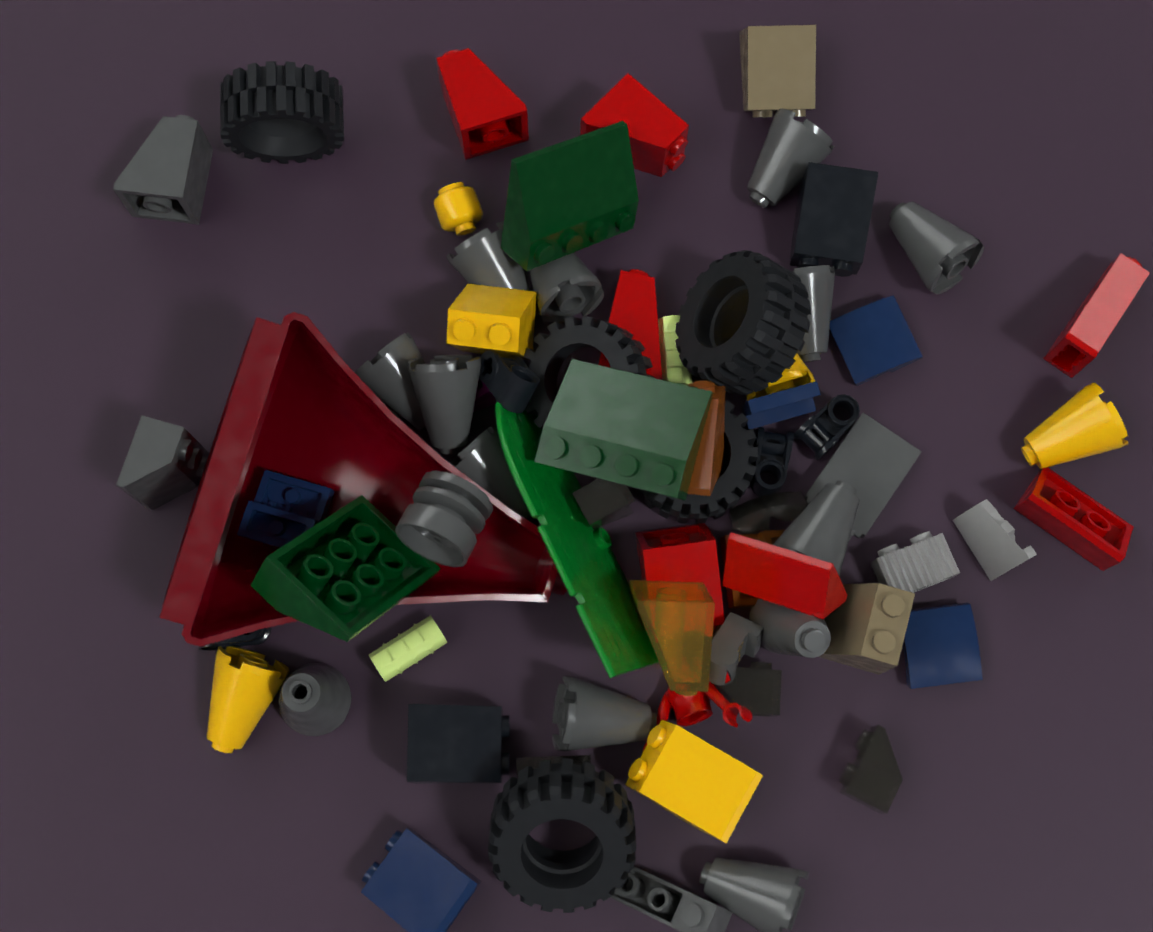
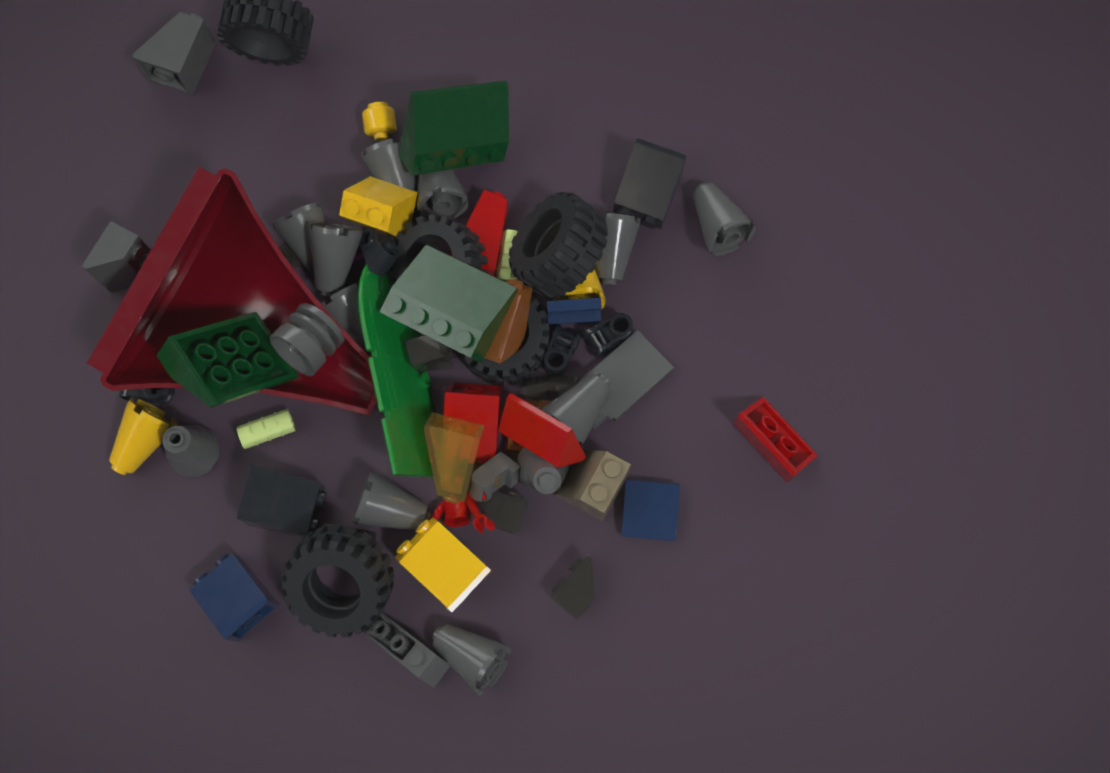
camera: 15 degrees right, 0 degrees up
(284, 509) = (200, 308): dark blue slope -> none
(480, 105) = (411, 50): red slope -> none
(654, 130) = (529, 92): red slope -> none
(778, 69) = (638, 66): dark tan slope -> none
(785, 157) = (623, 131): dark grey cone -> none
(875, 340) = (660, 279): dark blue slope -> none
(917, 565) = (647, 448): light grey brick -> none
(991, 539) = (706, 441): light grey slope -> none
(1076, 431) = (788, 376): yellow cone -> none
(1097, 316) = (829, 294): slope -> none

